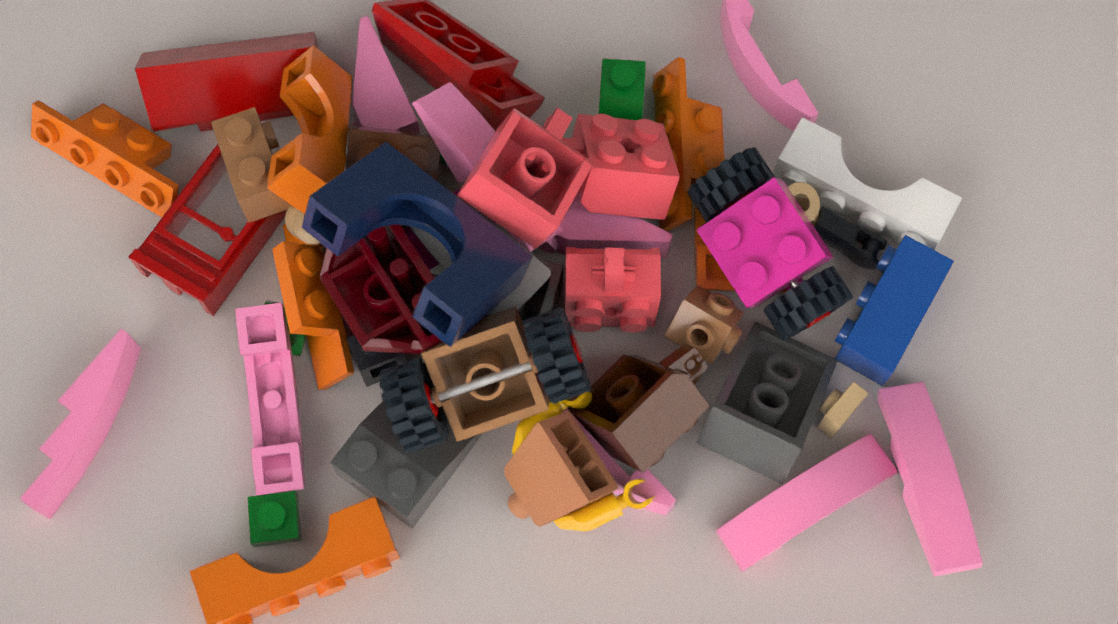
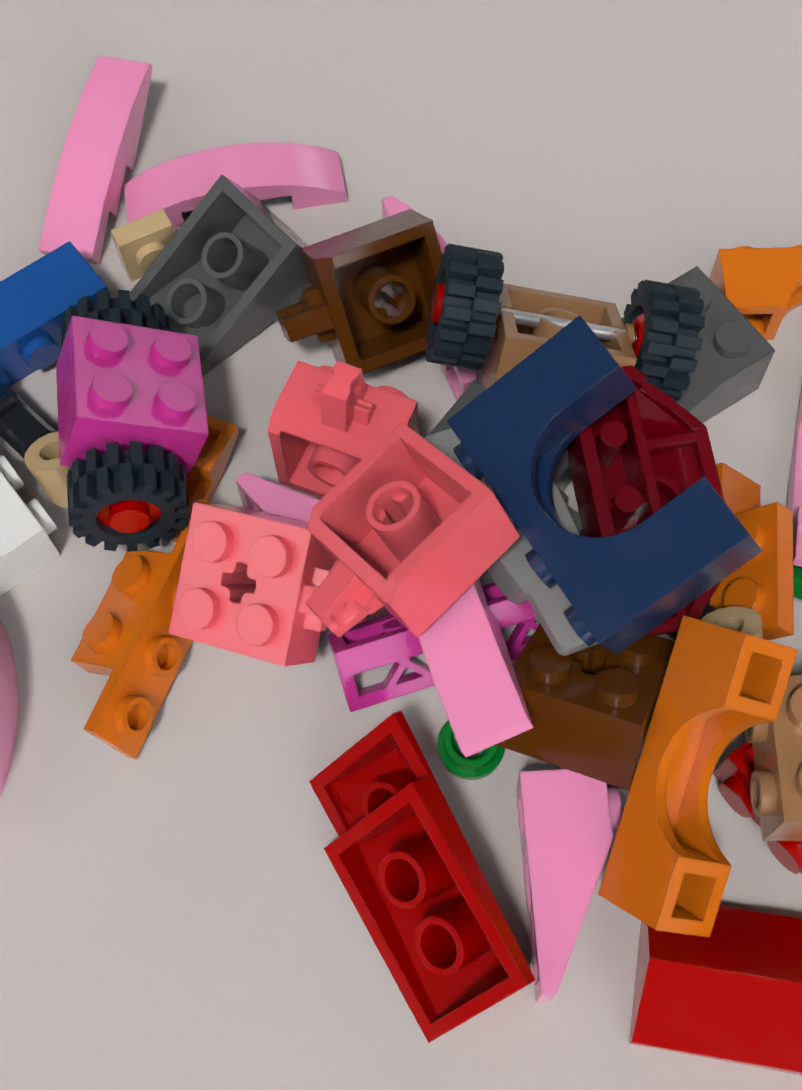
camera: 155 degrees left, 5 degrees down
(561, 474) = (496, 220): nougat torso -> none
(622, 88) = (209, 708): green slope -> none
(706, 323) = (247, 372): medium nougat brick -> none

